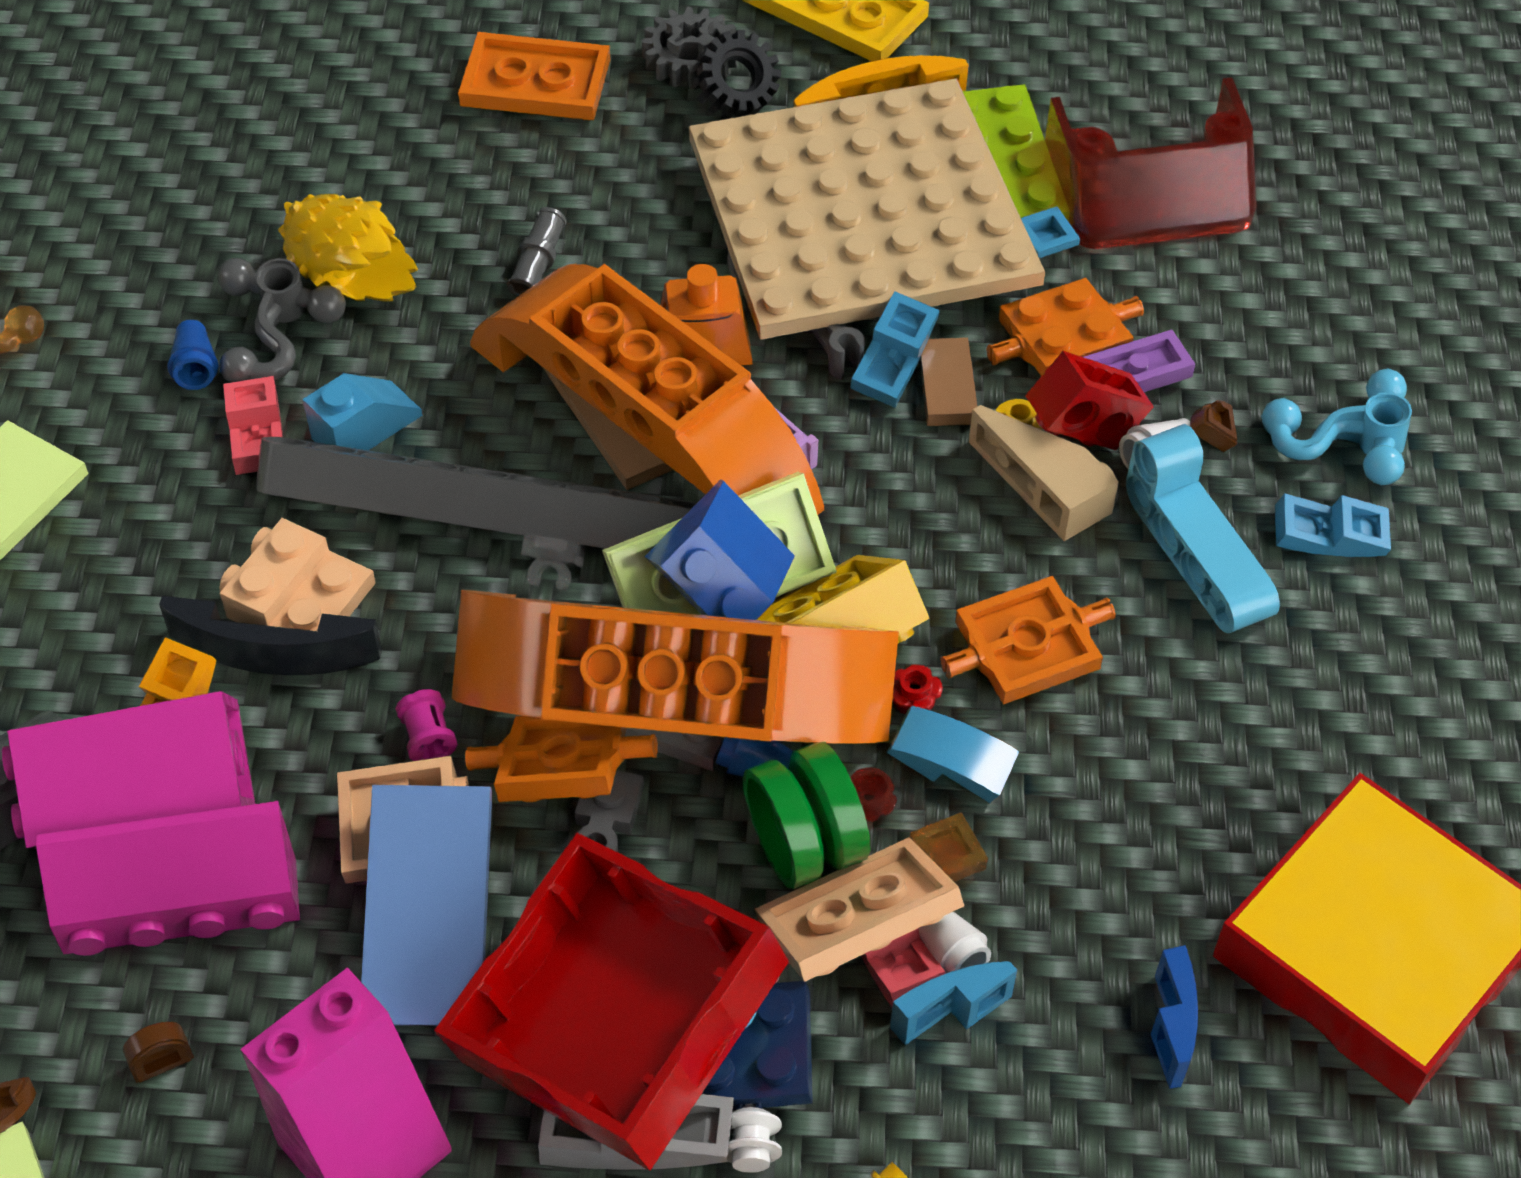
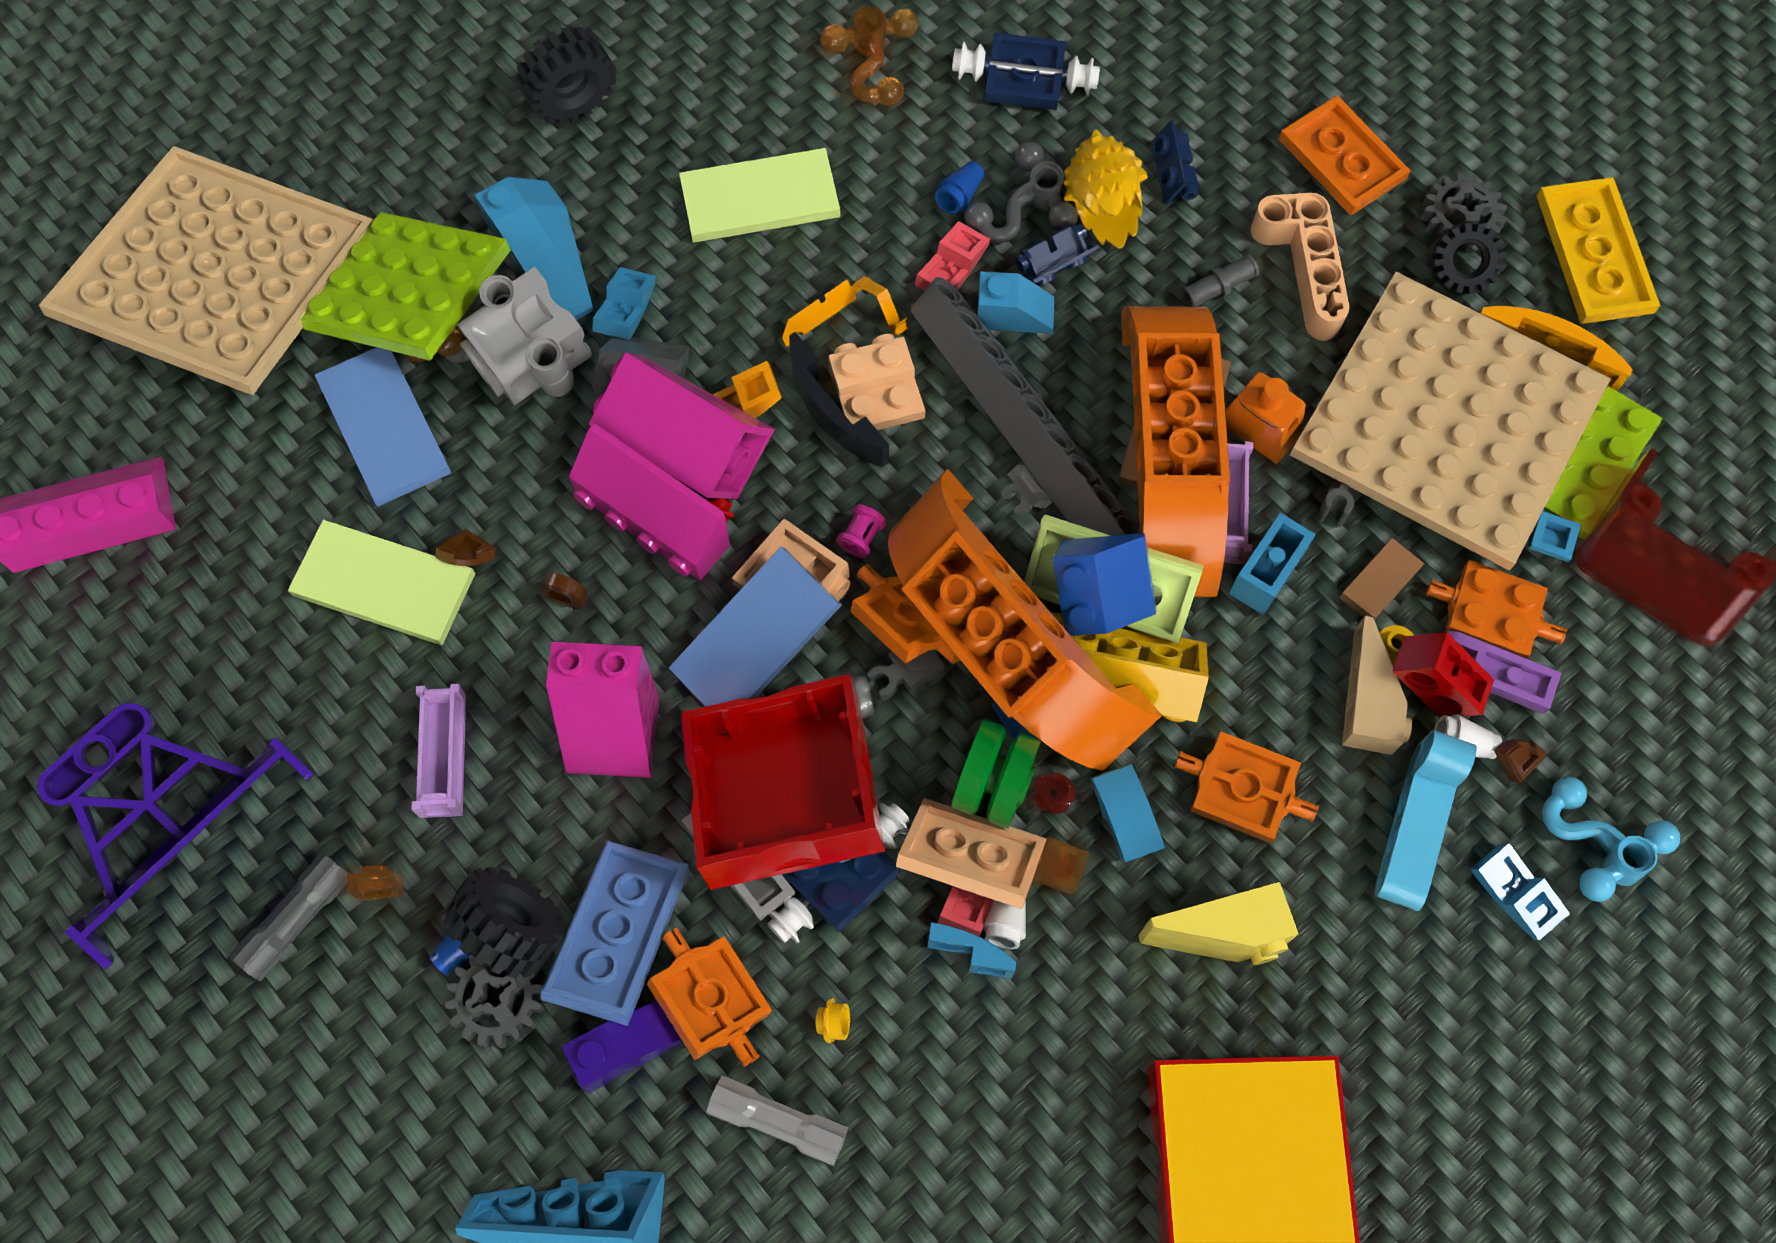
camera: 45 degrees right, 15 degrees up
(150, 211) = (1025, 70): none -> dark blue plate
(169, 543) = (838, 299): none -> light orange piece
(366, 332) = (1068, 252): none -> dark blue hinge
(374, 182) = (1171, 152): none -> dark blue hinge
(575, 154) = (1292, 226): none -> light nougat beam
(847, 435) = (1271, 563): none -> dark azure brick
(894, 349) = (1366, 532): dark azure slope -> none
(925, 697) = (1148, 765): red plate -> none
(1155, 758) = (1230, 928): none -> light yellow slope
(1177, 1022) = (1073, 1088): blue slope -> none

